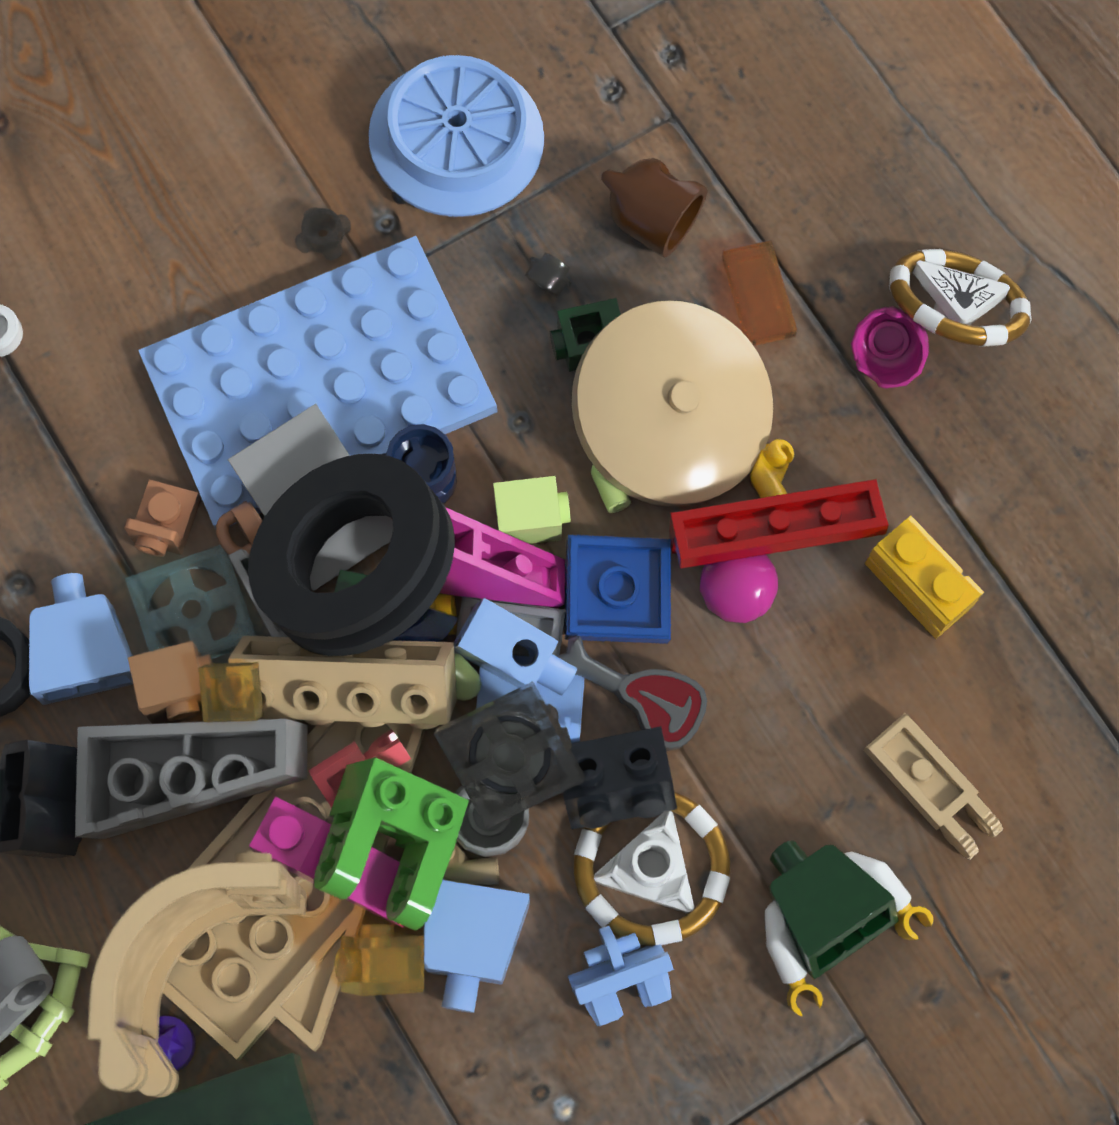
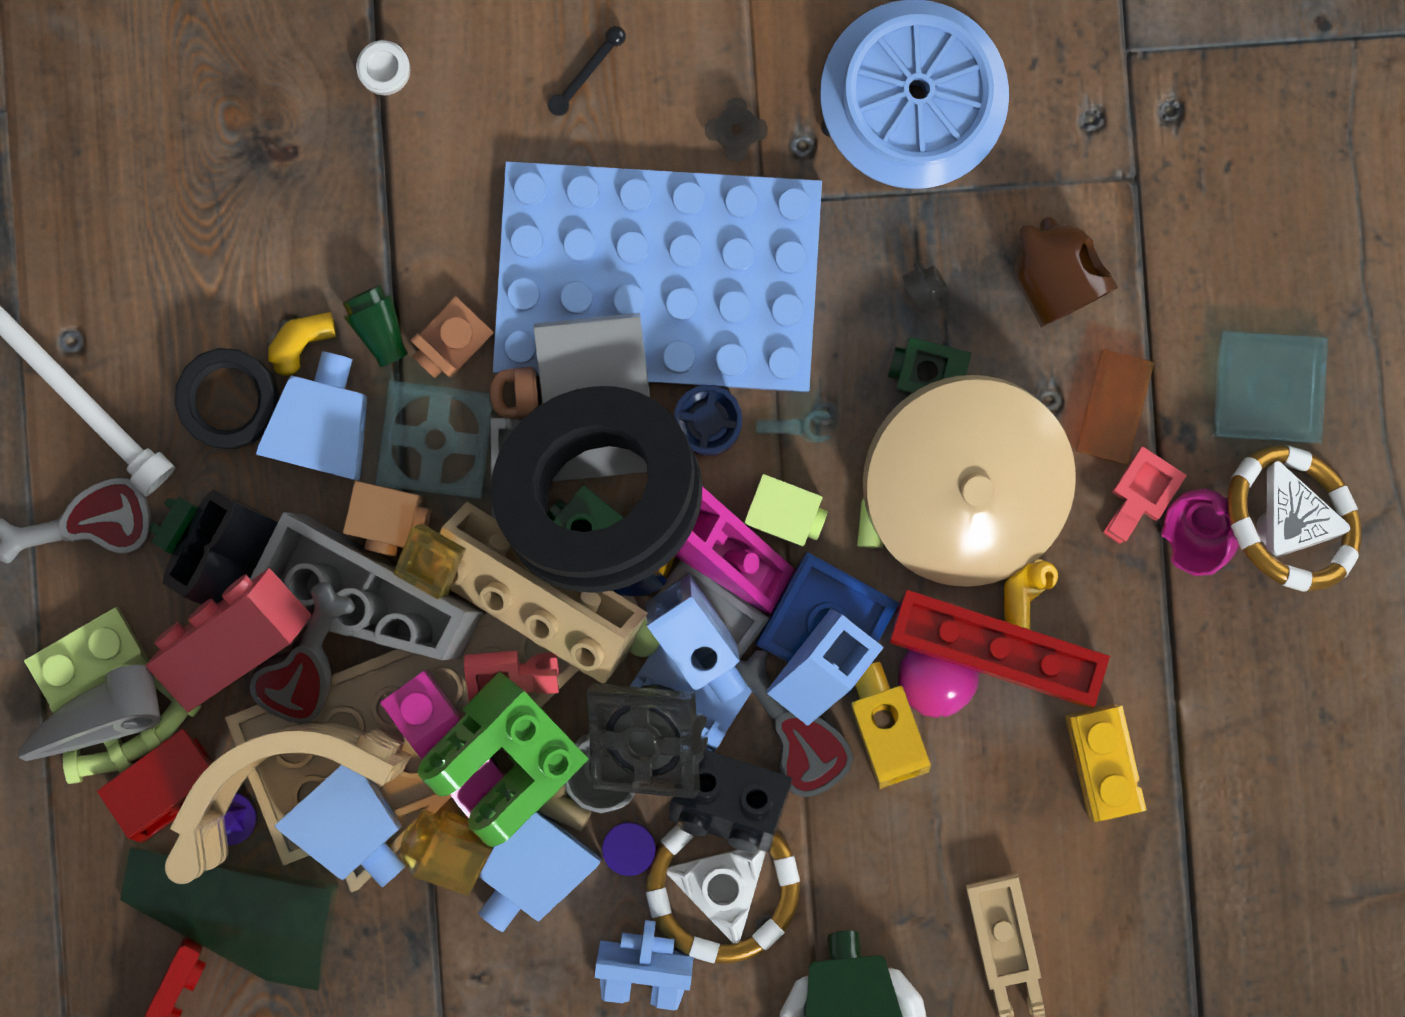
camera: 30 degrees right, 15 degrees up
(22, 585) = (293, 338): none -> yellow arm
(68, 1060) = (156, 786): none -> red hinge
(77, 866) = (227, 638): none -> coral brick
(89, 536) = (376, 324): none -> dark green cone
(162, 287) = (559, 104): none -> black hinge
(163, 850) = (299, 681): none -> dark grey piece
(275, 983) = (346, 826): none -> light blue torso
(504, 440) = (794, 426): none -> clear light blue hand
(549, 876) = (628, 848): none -> dark purple tile
(636, 614) = (824, 667): none -> light blue slope
(723, 645) = (892, 752): none -> yellow torso
(823, 341) = (1145, 489): none -> coral plate
(876, 215) = (1271, 387): none -> clear light blue tile

